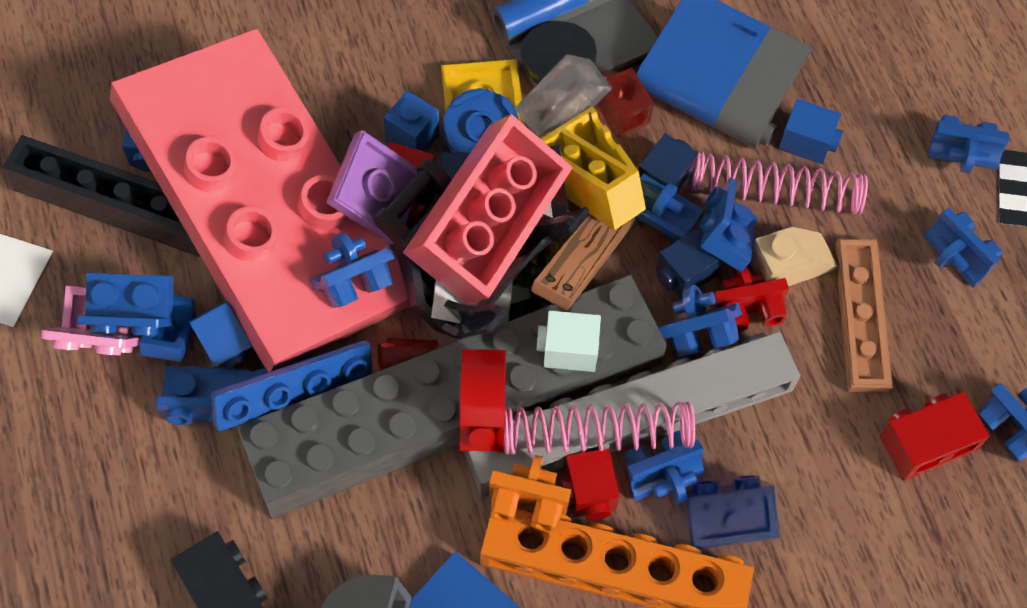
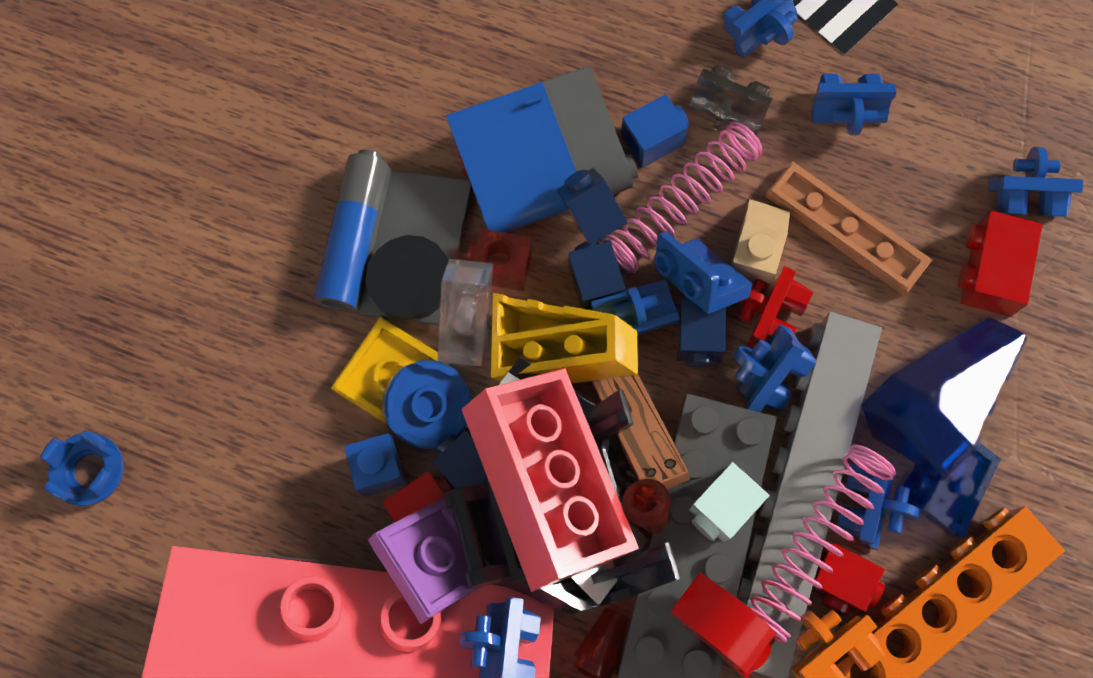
camera: 45 degrees left, 10 degrees up
(523, 288) = (647, 505): none -> clear red cone
(712, 121) = (591, 204): none -> dark blue brick
(773, 450) = (942, 399): none -> clear blue wedge
(879, 159) = (729, 100): none -> clear smoke hips

